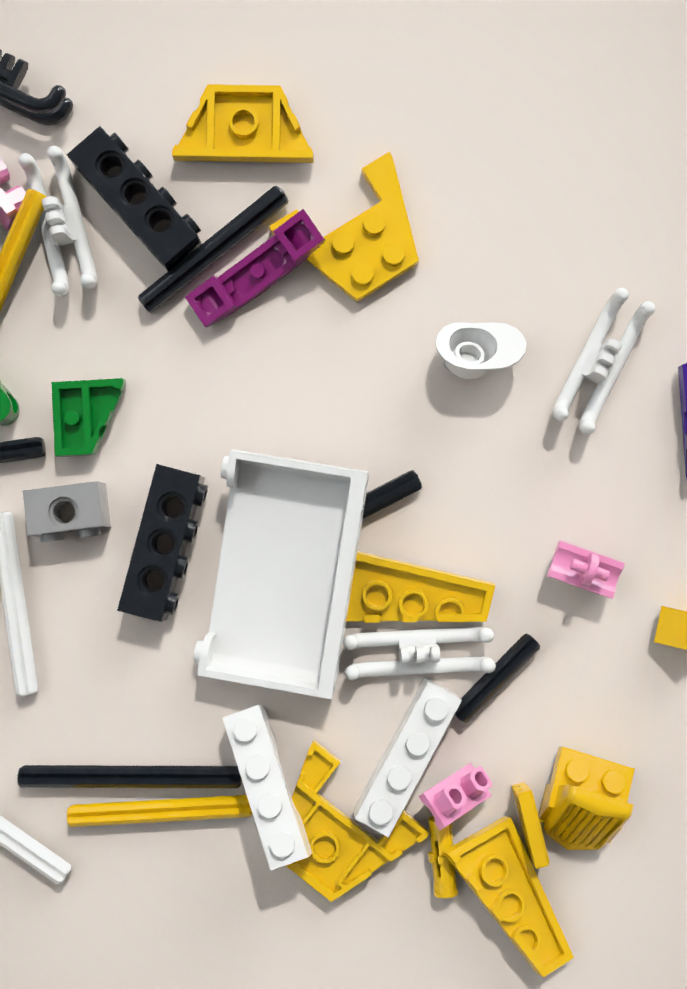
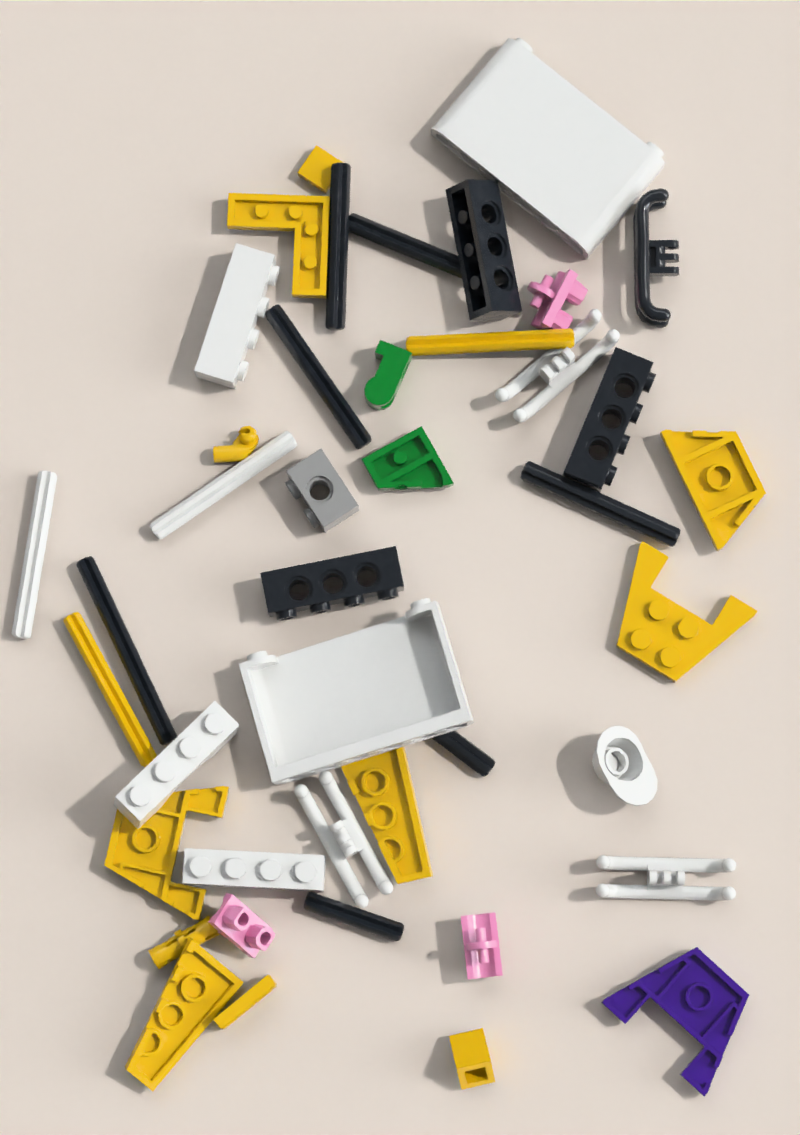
camera: 70 degrees right, 5 degrees down
(257, 271) = (598, 548): magenta slope -> none
(585, 800) = (287, 1039): yellow piece -> none

